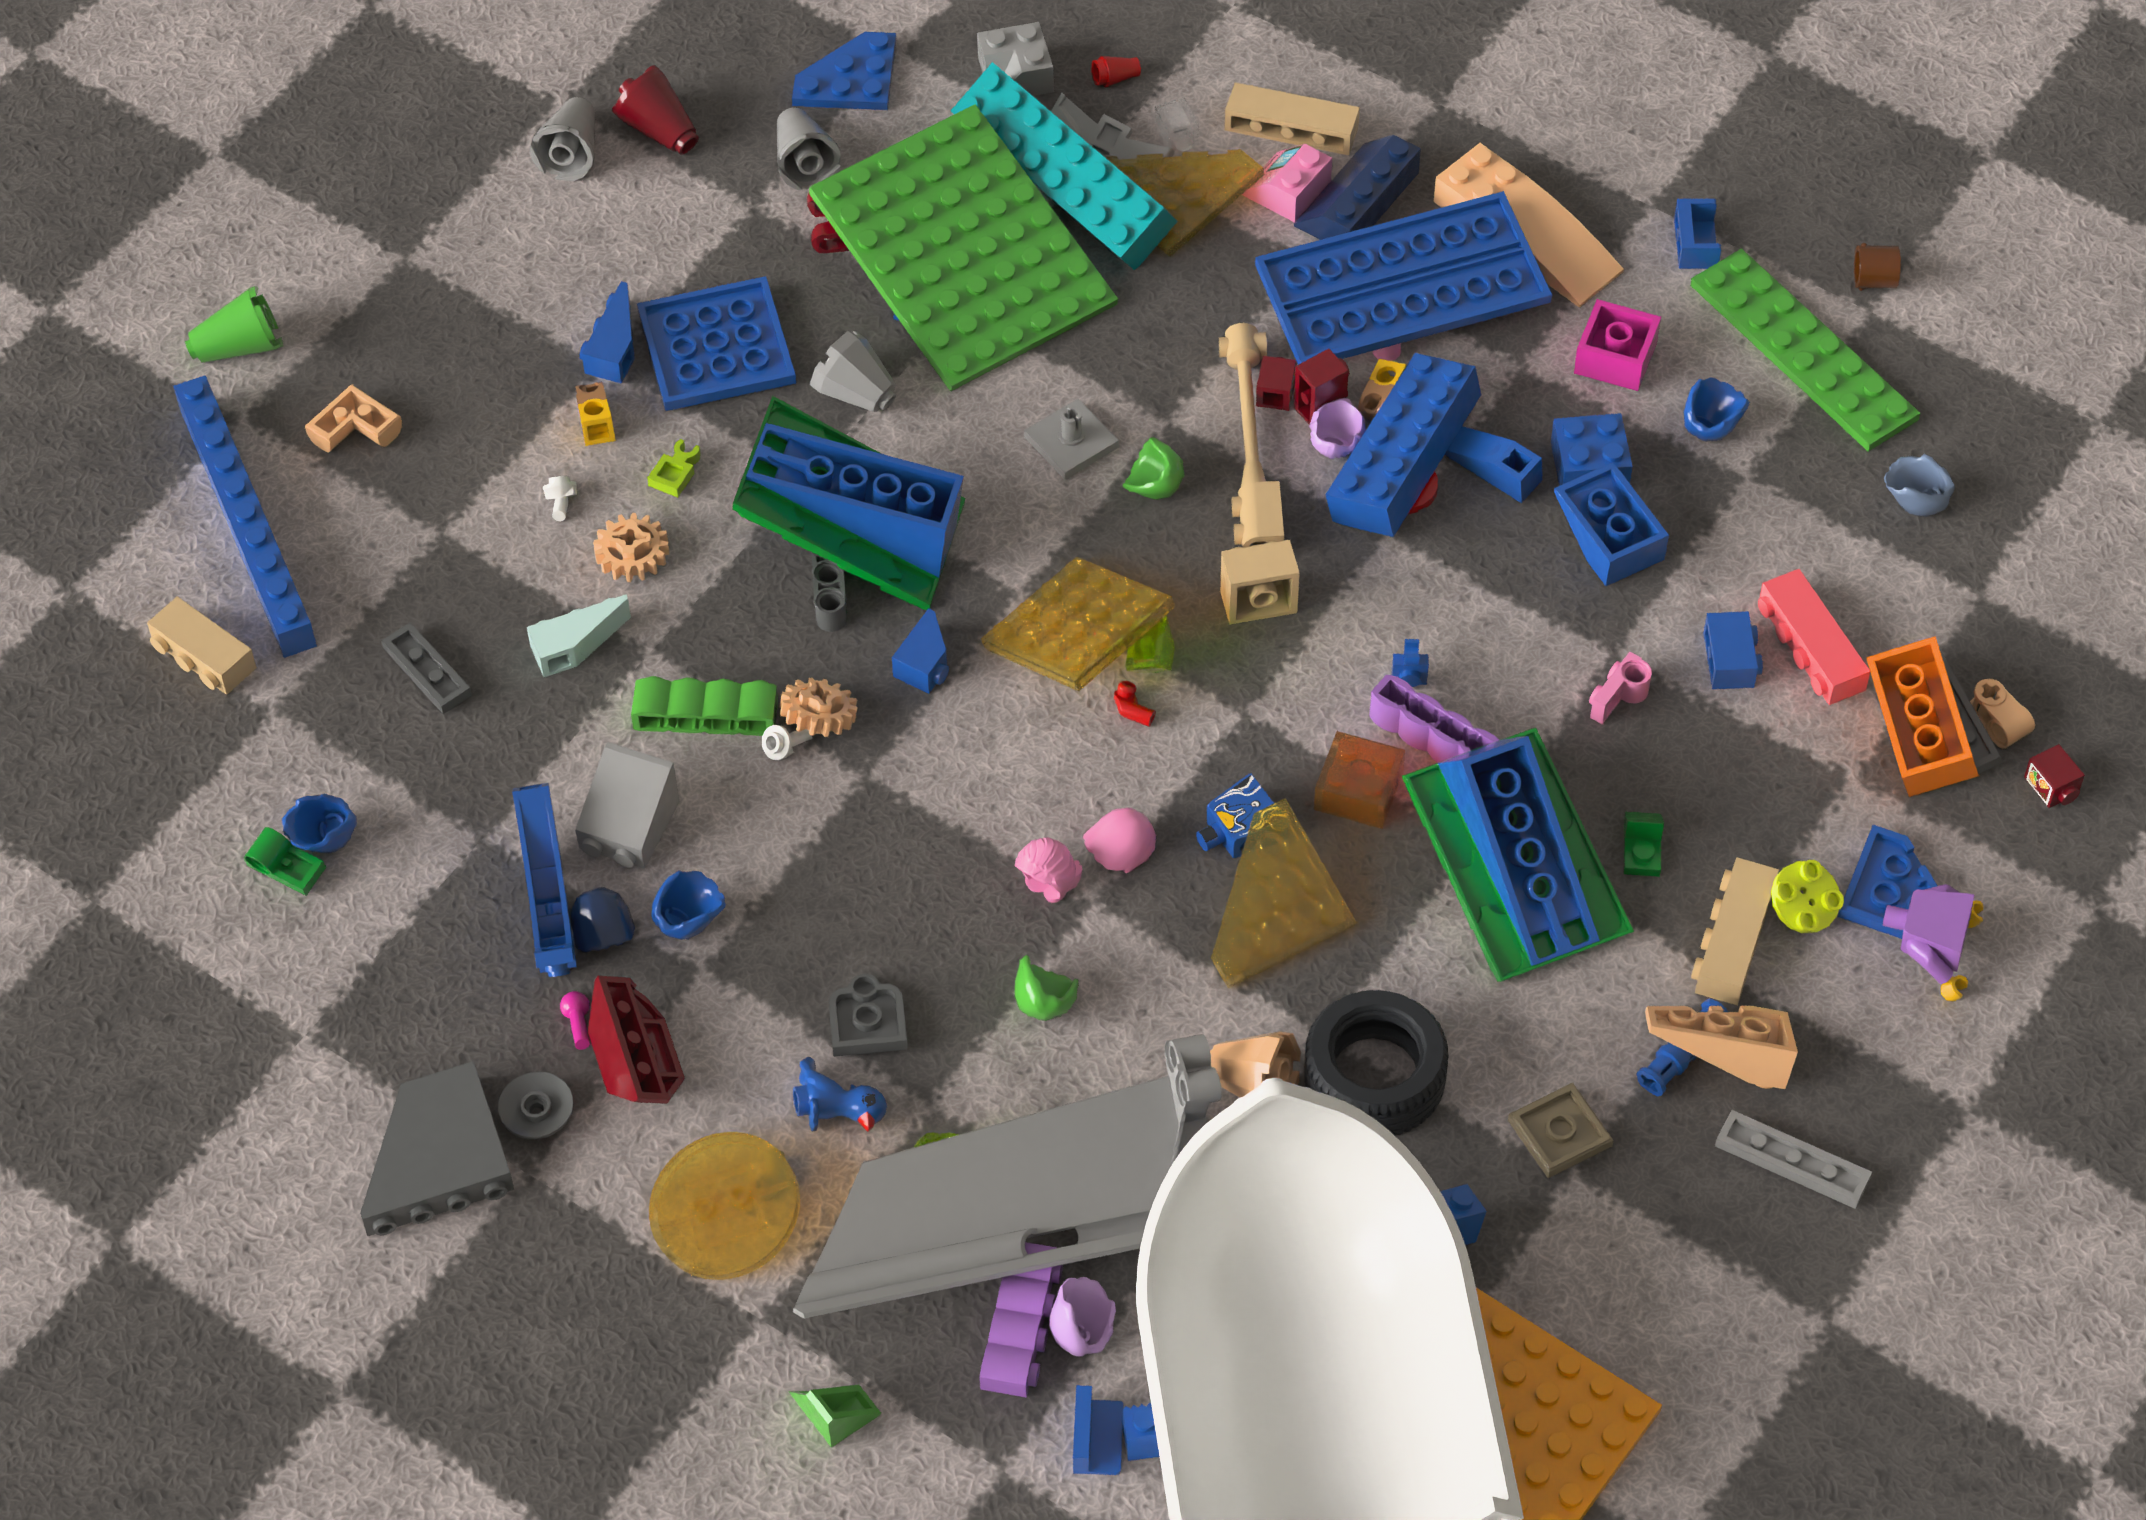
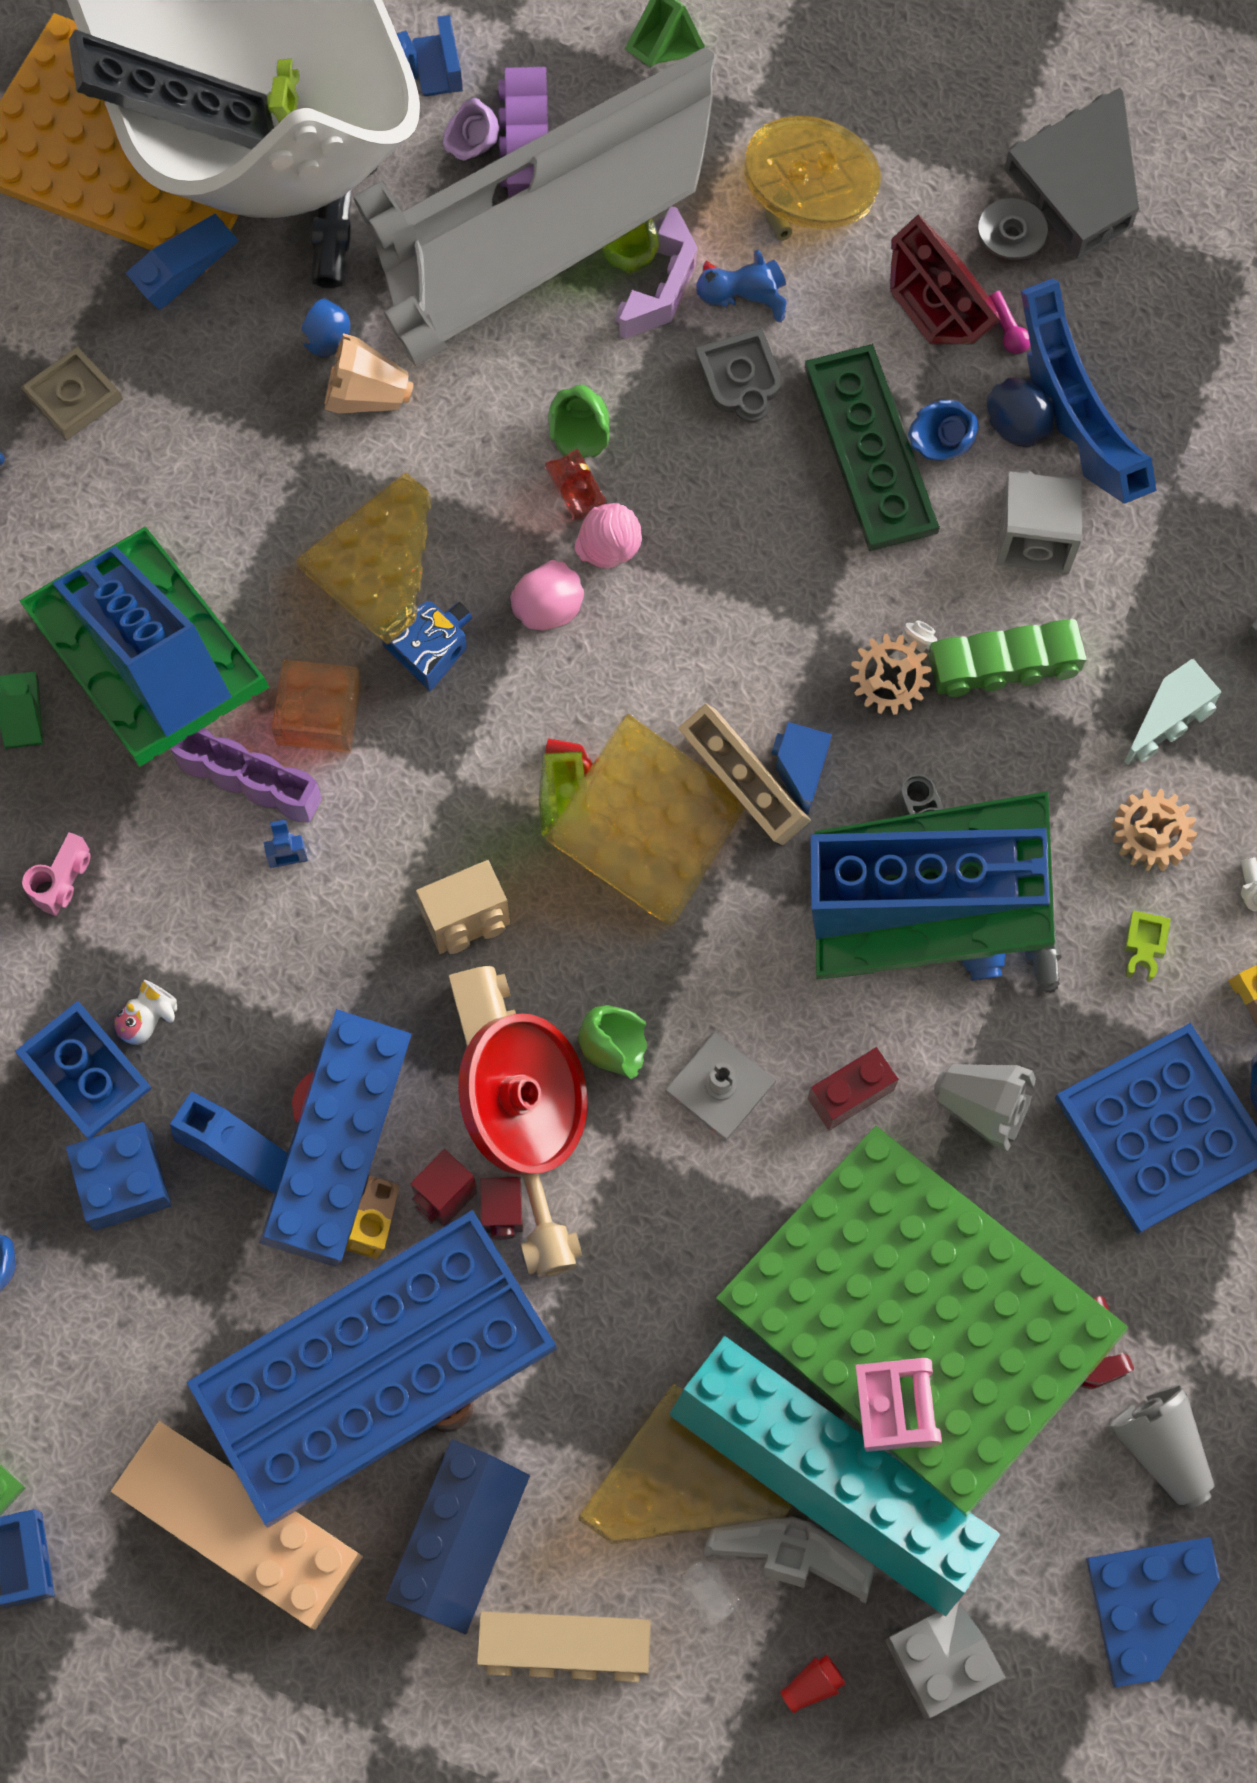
camera: 165 degrees right, 15 degrees up
(761, 922) = (871, 447): none -> dark green plate
(948, 1091) = (647, 312): none -> lavender slope
(963, 406) = (852, 1088): none -> dark red brick
(980, 647) = (744, 774): none -> tan brick
(1014, 172) = (883, 1405): none -> bright pink plate
(1065, 931) = (575, 484): none -> clear red hips
(1240, 427) = (522, 1094): none -> red dish
(1284, 1363) = (283, 97): none -> lime plate
(1292, 181) = (548, 1537): bright pink slope -> none
(1336, 428) = (415, 1141): lavender hair -> none
(1388, 1018) = (241, 359): black tyre -> none
(1405, 1327) = (168, 91): none -> black plate
(1558, 566) = (140, 1015): none -> white animal
(1617, 345) = (102, 1341): dark pink brick -> none

